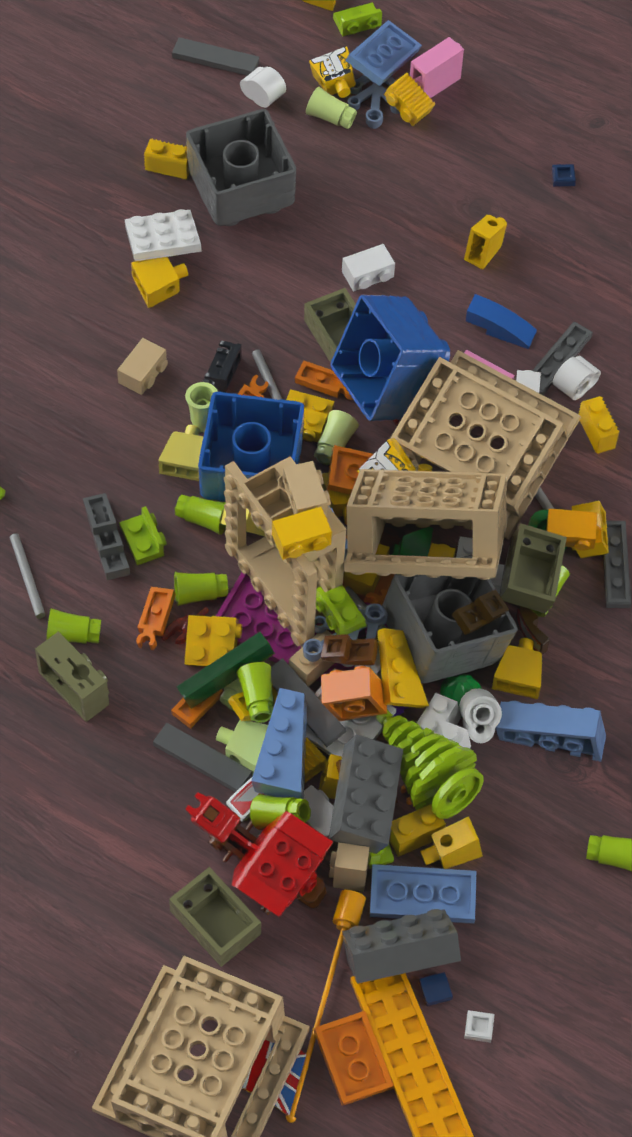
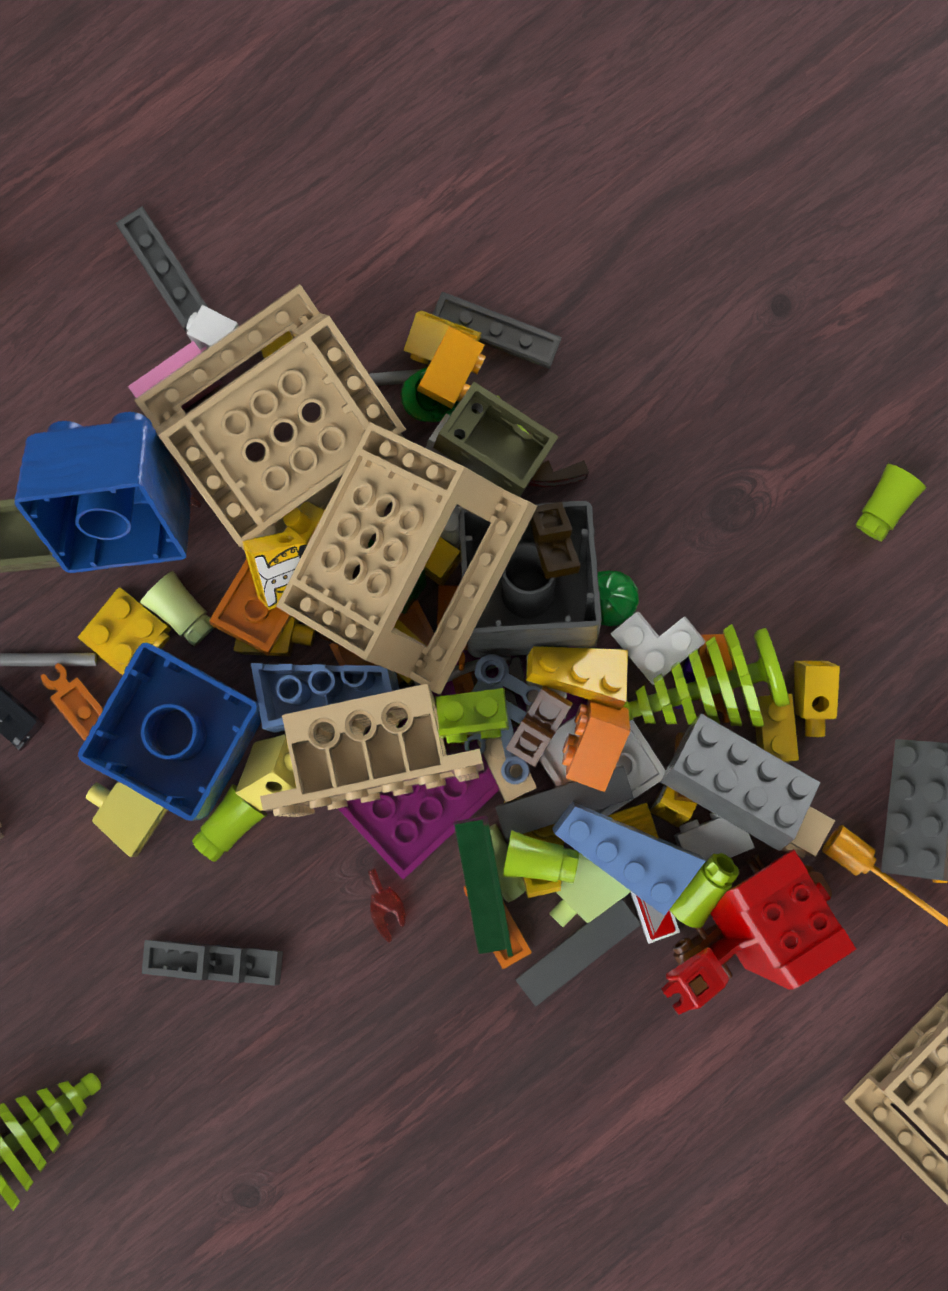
camera: 65 degrees left, 25 degrees up
(27, 576) = (230, 1084): light grey bar -> none
(74, 627) = (337, 1055): lime plant -> none
(82, 685) = (415, 1082): olive piece -> none
(143, 537) = (231, 914): lime bracket -> none
(155, 615) = (356, 940): orange plate -> none
(198, 400) = (58, 770): yellowish green plant -> none
(199, 587) = (338, 869): lime plant -> none
(210, 638) = (426, 882): yellow plate -> none
(215, 916) = (807, 1018): olive piece -> none
(301, 533) = (422, 749): yellow brick -> none
(305, 488) = (357, 719): tan brick -> none
(321, 380) = (76, 594): orange plate -> none
(416, 890) = (858, 752): medium blue plate -> none
(480, 714) = (658, 590): white piece -> none
(500, 322) = (81, 319): blue slope -> none
(520, 670) = (612, 511): yellow torso -> none
(553, 727) = (701, 512): medium blue wedge -> none
(576, 377) = (208, 258): white piece -> none
(598, 424) = (290, 262): yellow brick -> none

